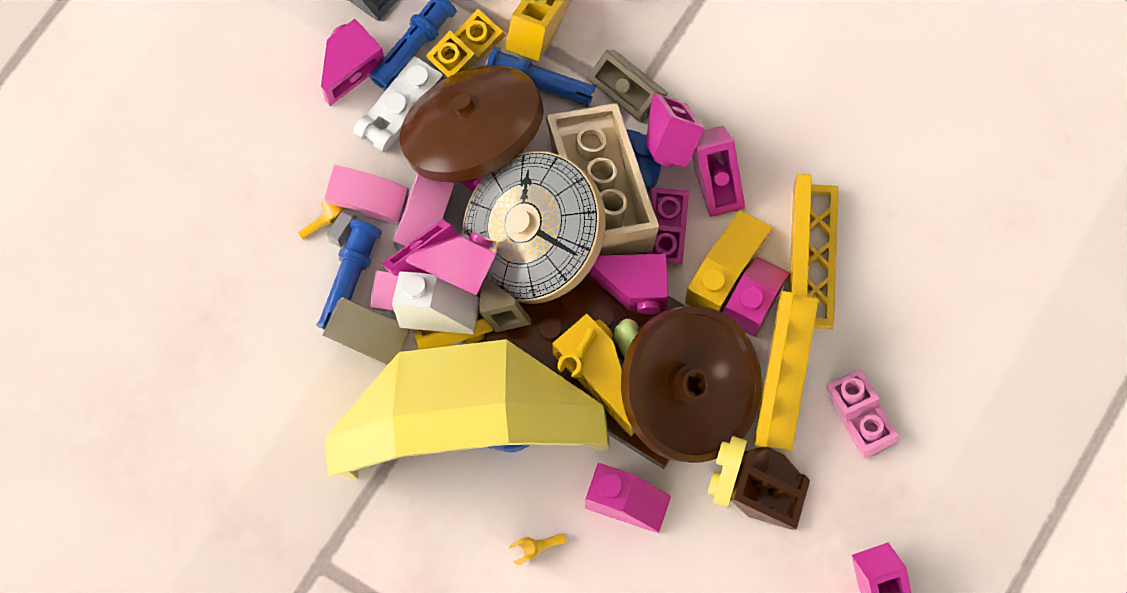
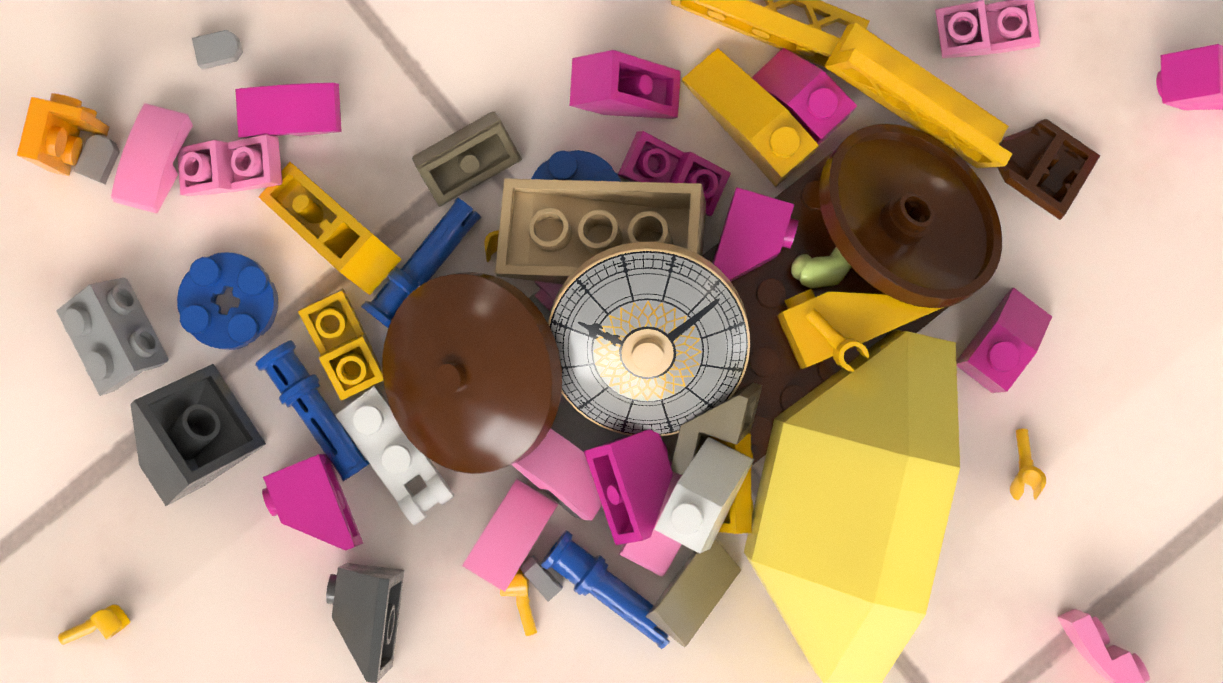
camera: 70 degrees left, 15 degrees up
(279, 120) = (367, 614): none -> dark grey slope
(458, 260) = (668, 453): slope -> none
(672, 131) = (562, 122): dark pink slope -> none
(730, 458) = (1022, 209): light yellow plate -> none

